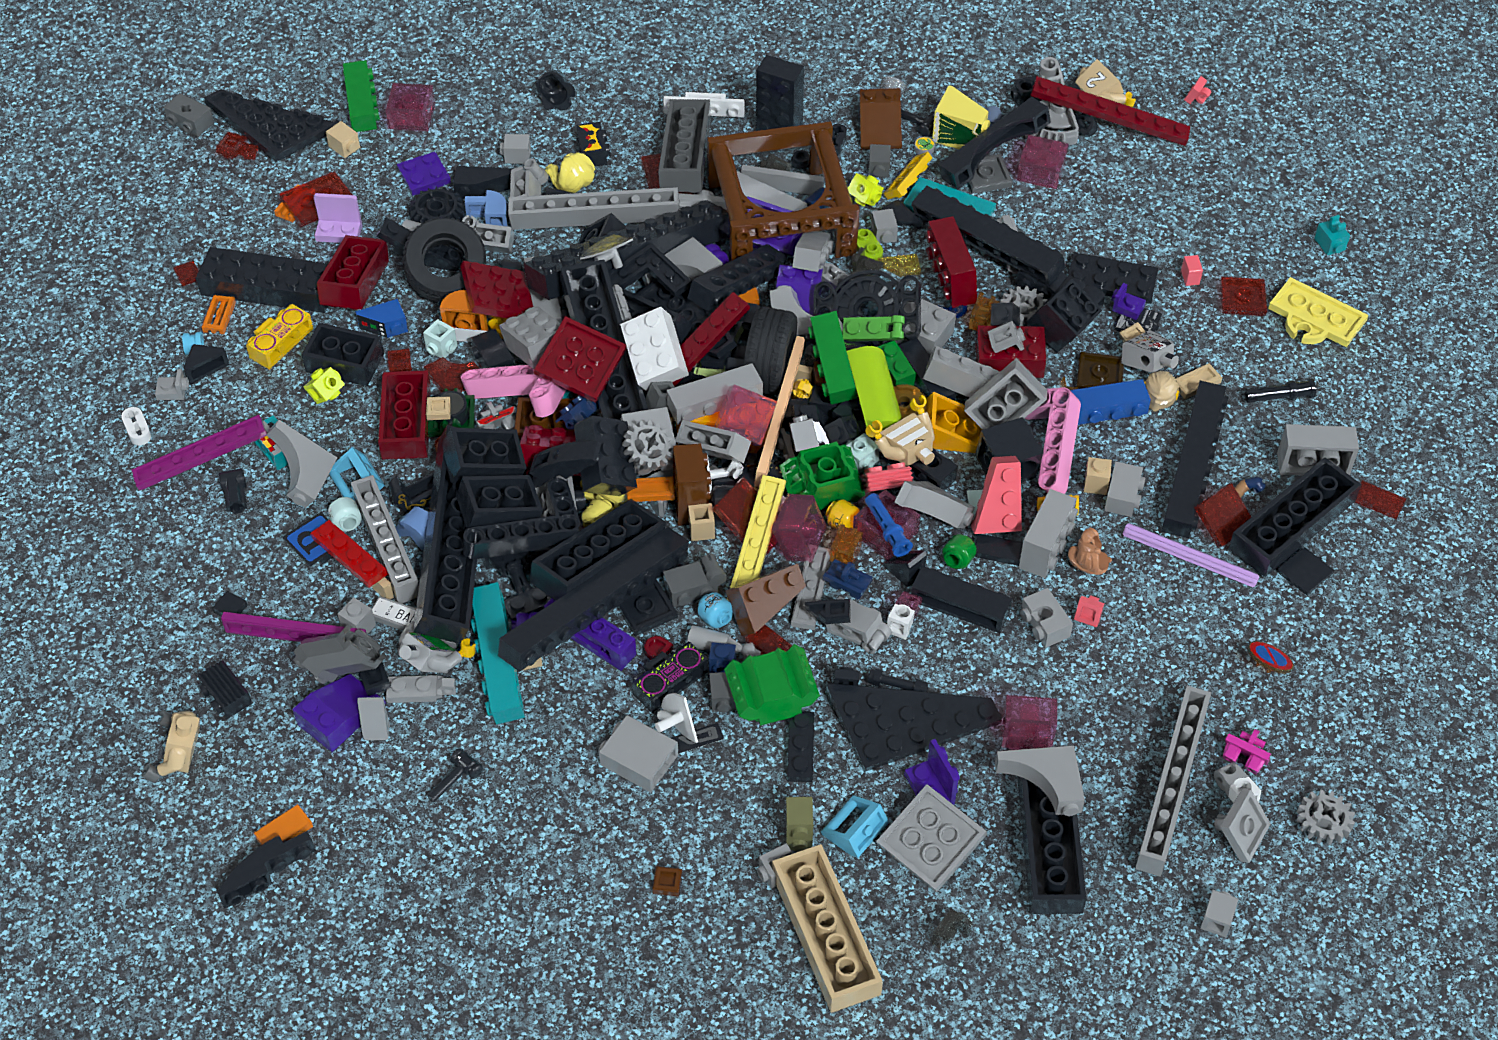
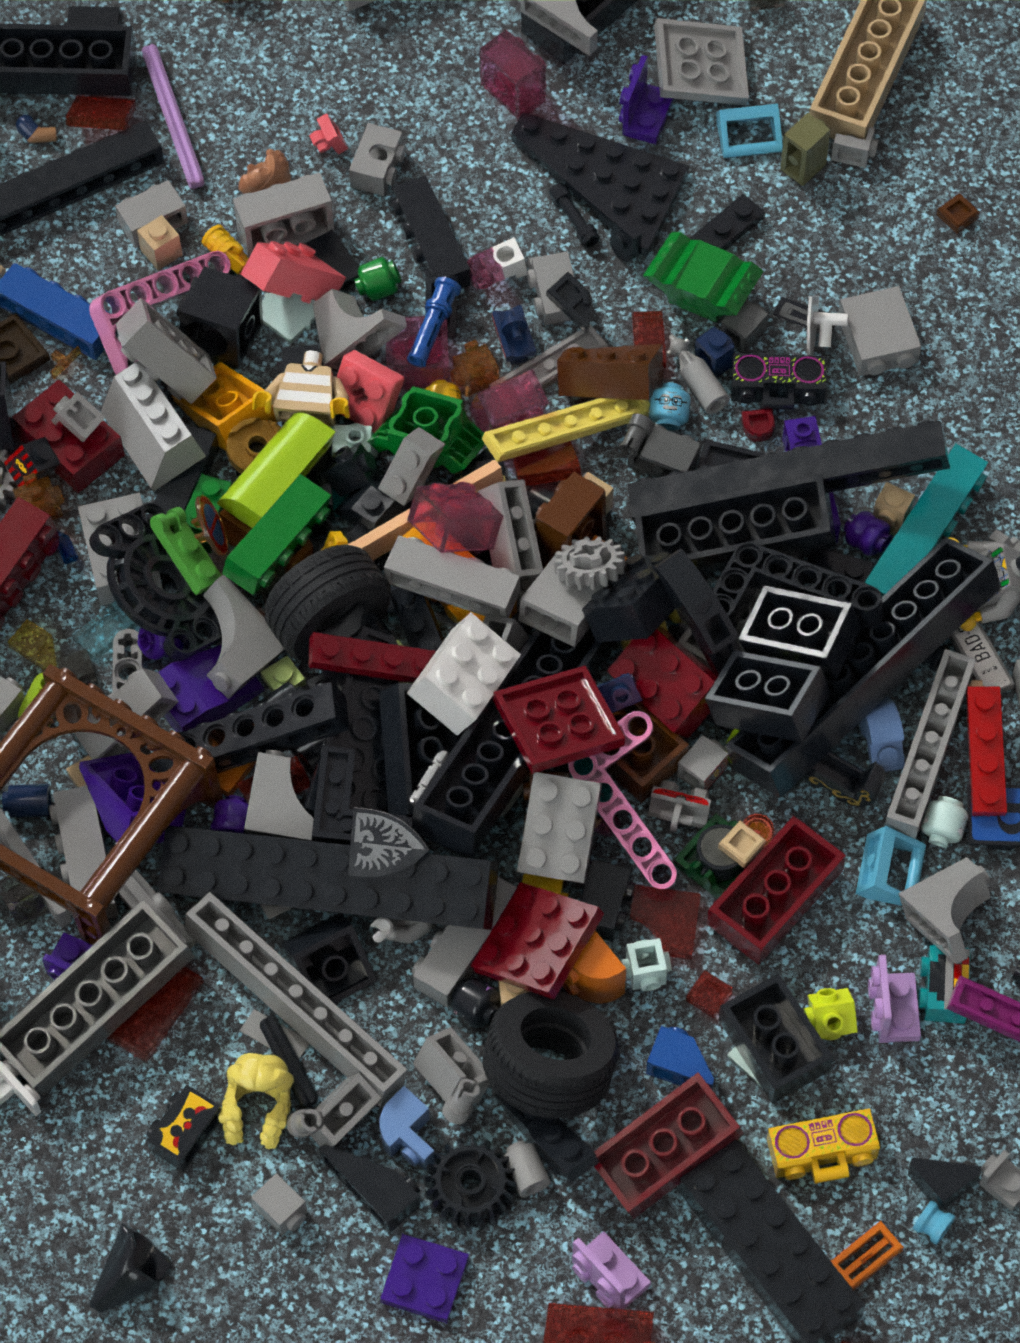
camera: 135 degrees left, 10 degrees up
(299, 410) = (894, 1004): none -> lavender bracket
(871, 332) = (211, 525): none -> piece

